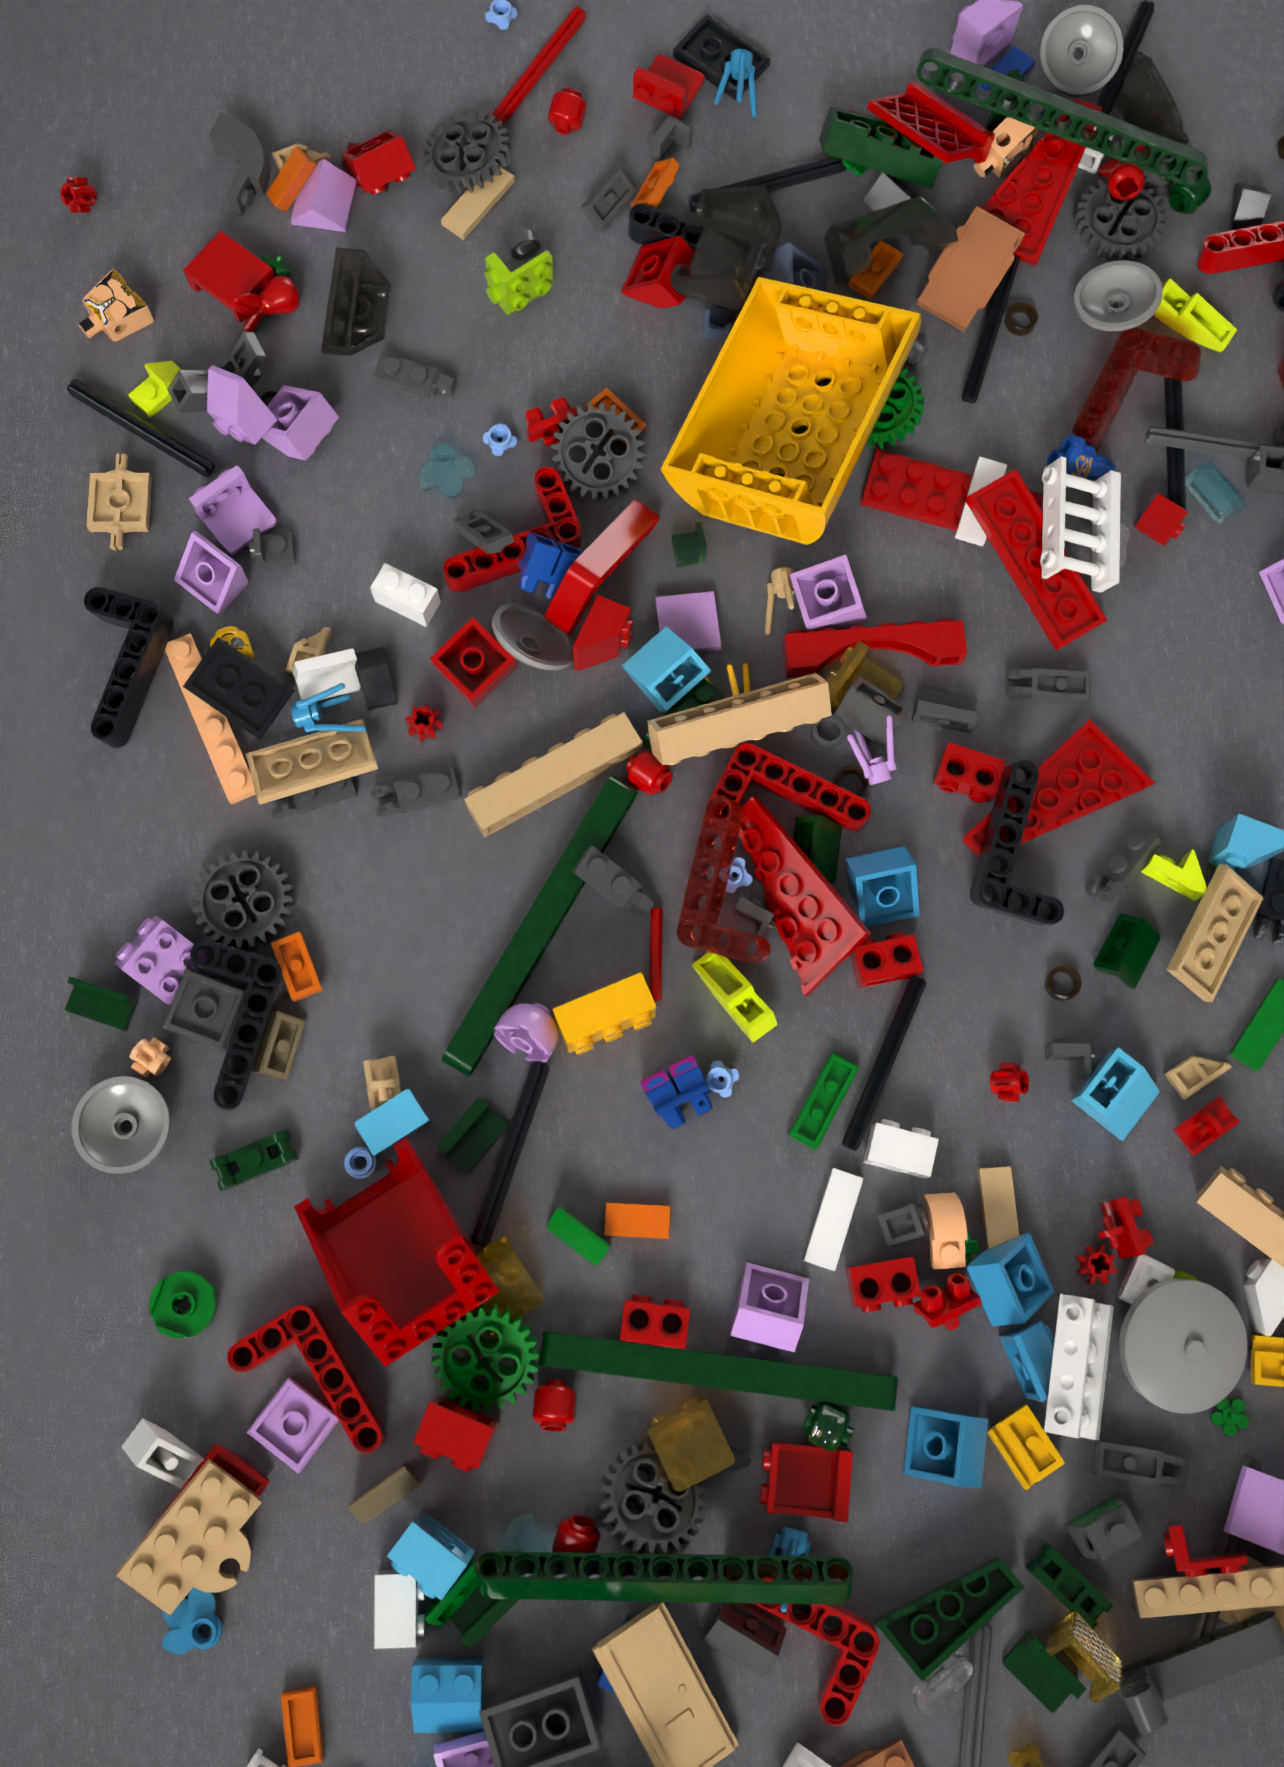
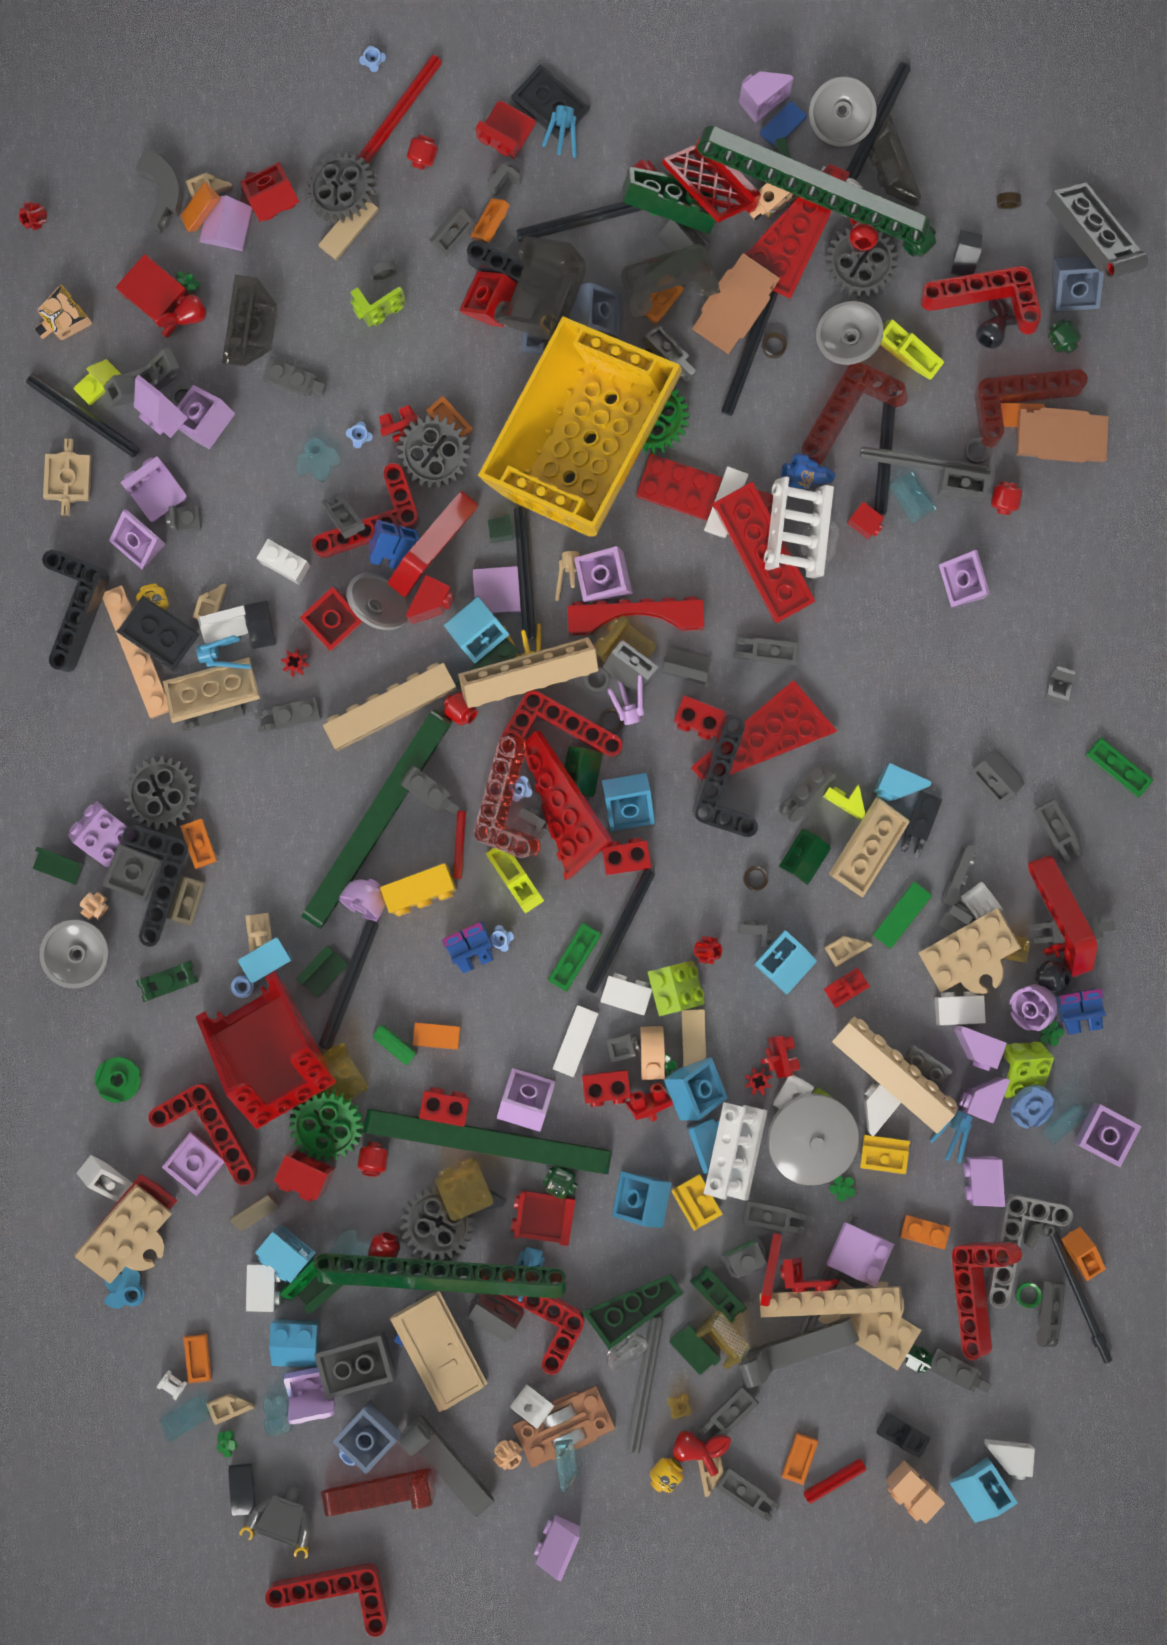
camera: 10 degrees right, 10 degrees up
(723, 597) = (524, 572): none -> black axle
(970, 1136) = (676, 988): none -> lime bracket
(1148, 1545) = (771, 1270): none -> red tile

